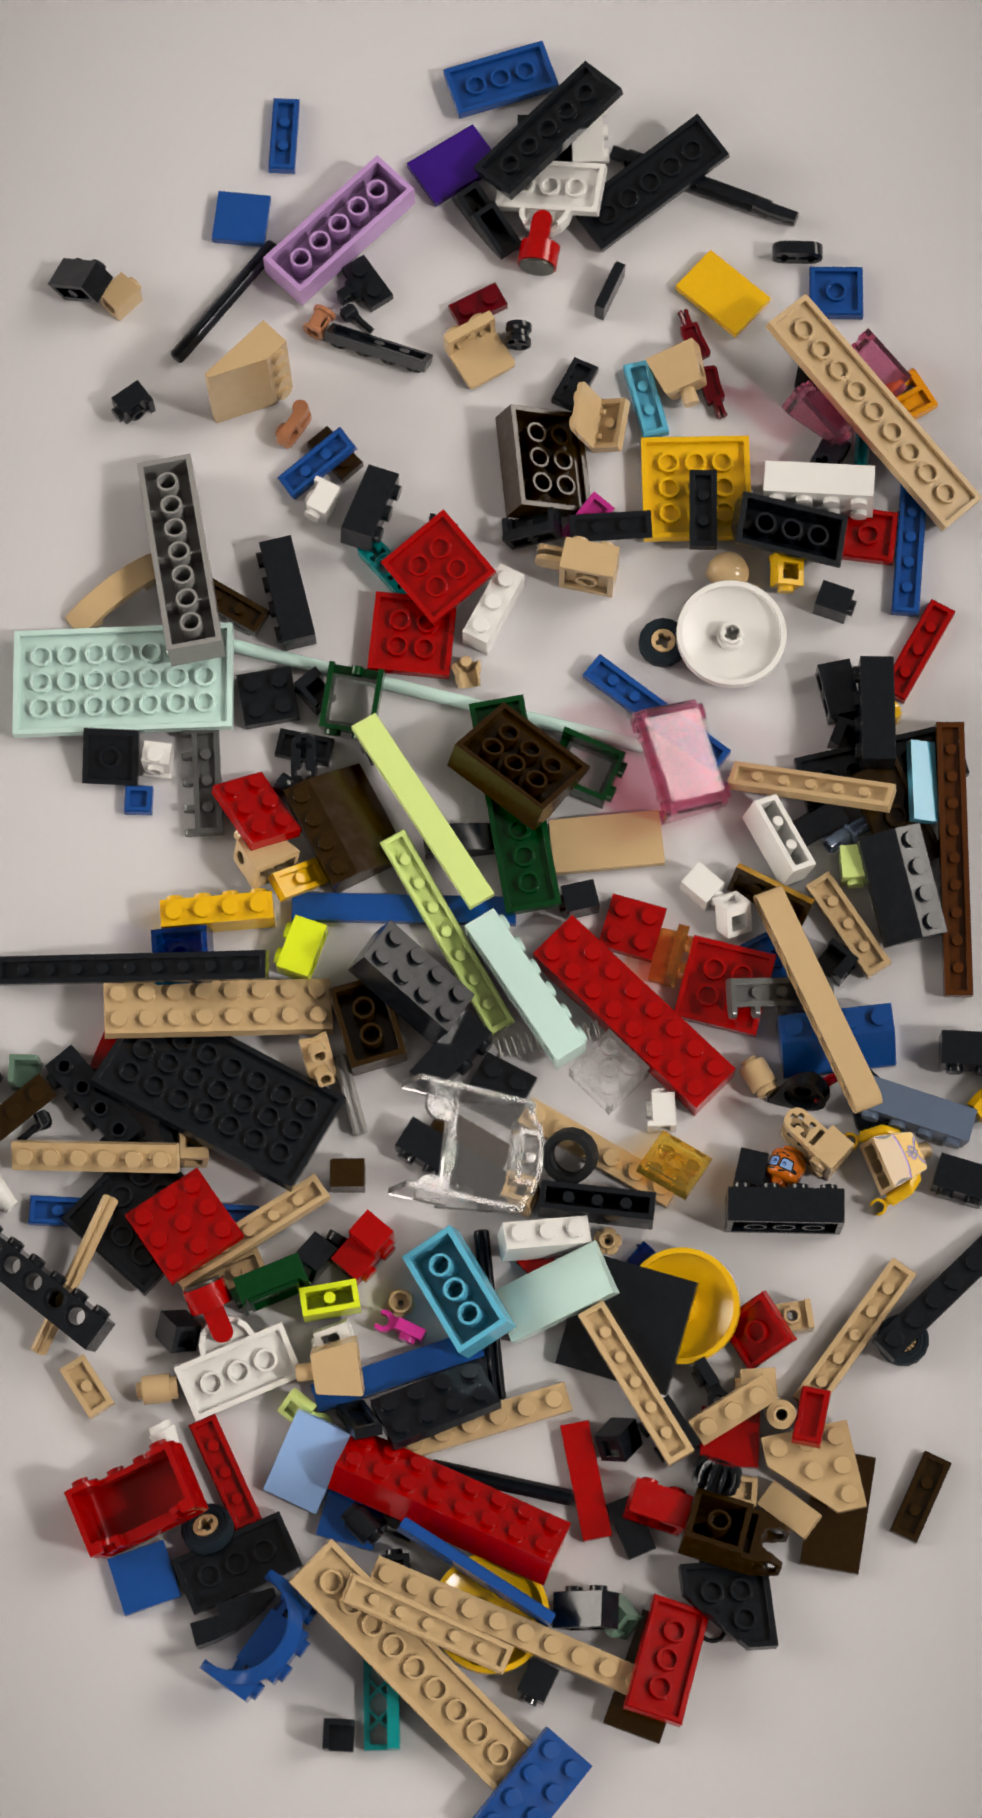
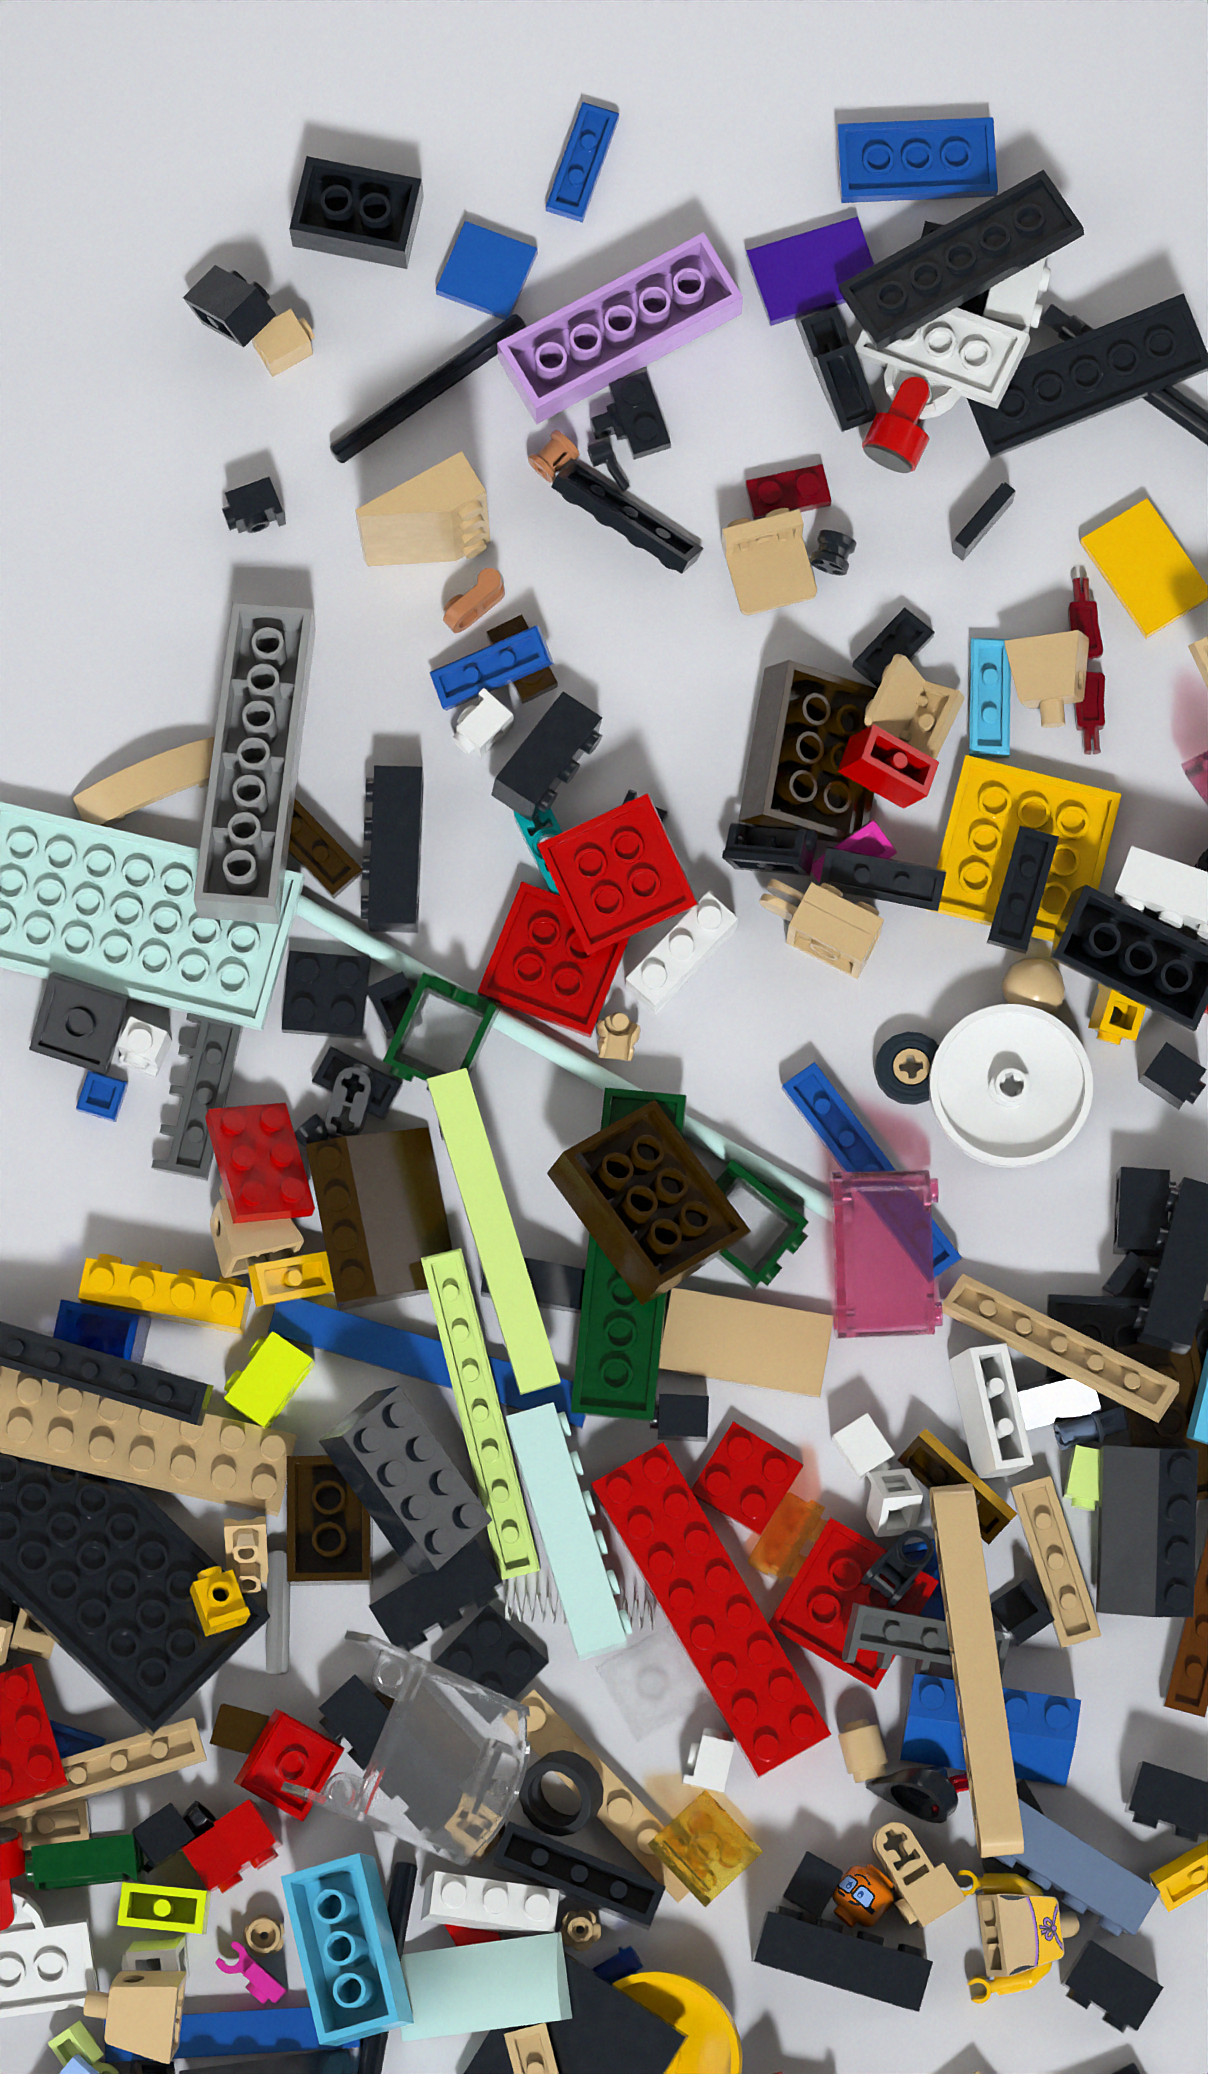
camera: 15 degrees right, 5 degrees up
(146, 202) = (356, 212): none -> black brick
(310, 1101) = (213, 1614): none -> yellow brick
(376, 1177) = (288, 1754): none -> red tile
(593, 456) = (888, 766): none -> red brick
(748, 955) = (898, 1569): none -> black piece

